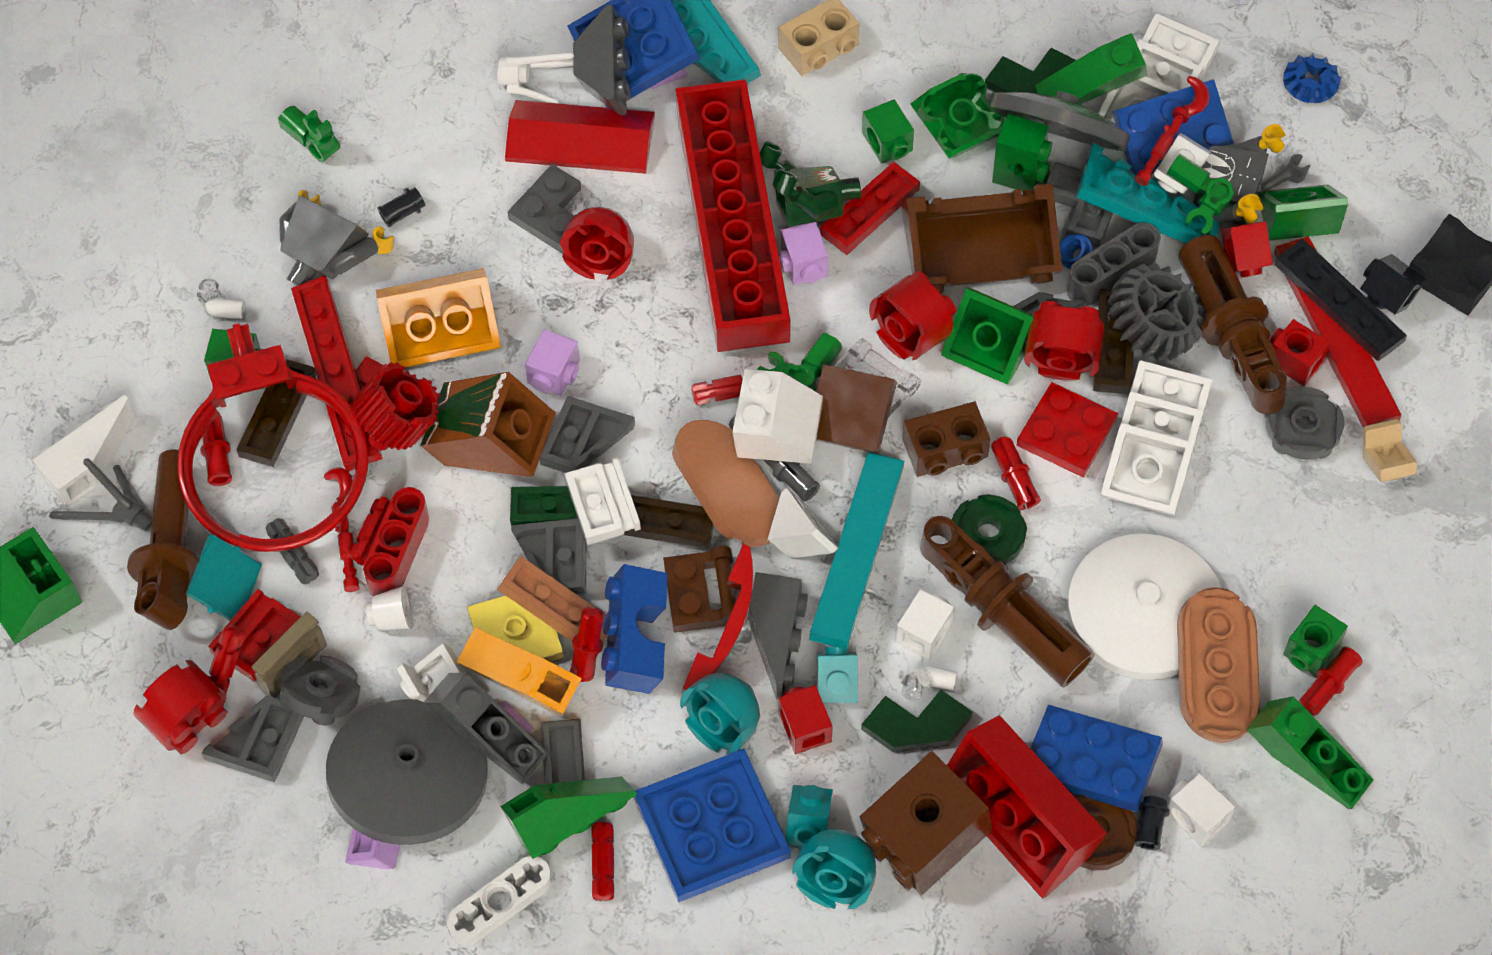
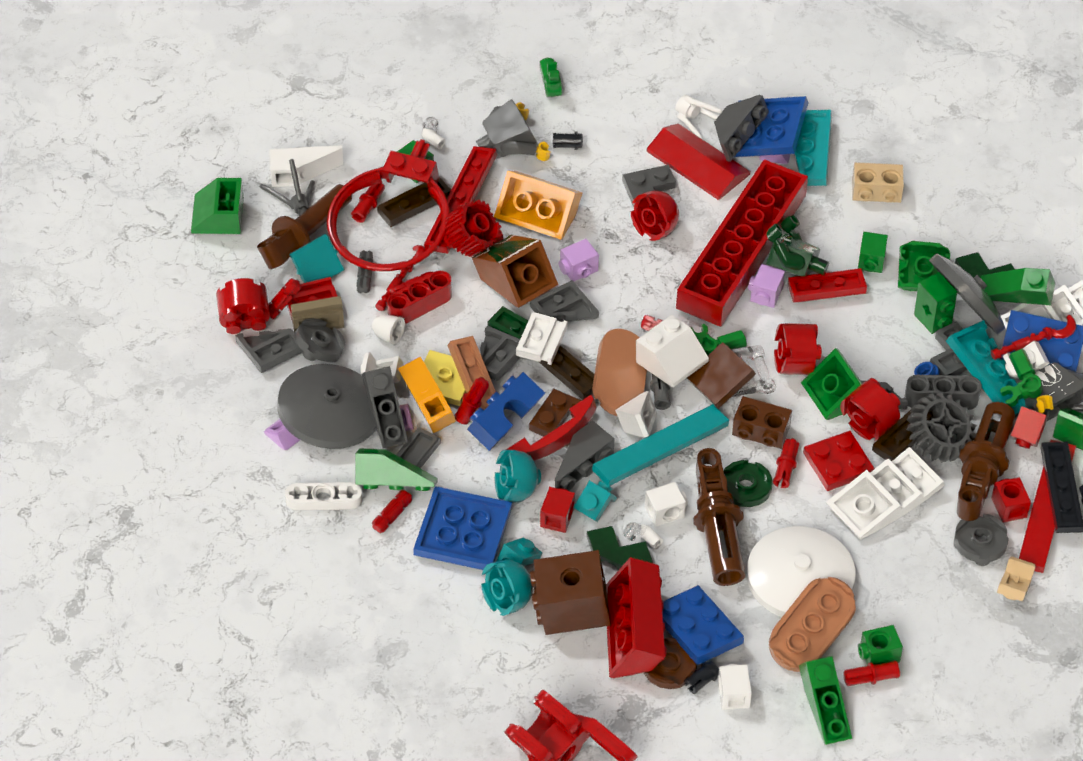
camera: 35 degrees right, 10 degrees down
(984, 237) = (873, 333): reddish brown windscreen -> none

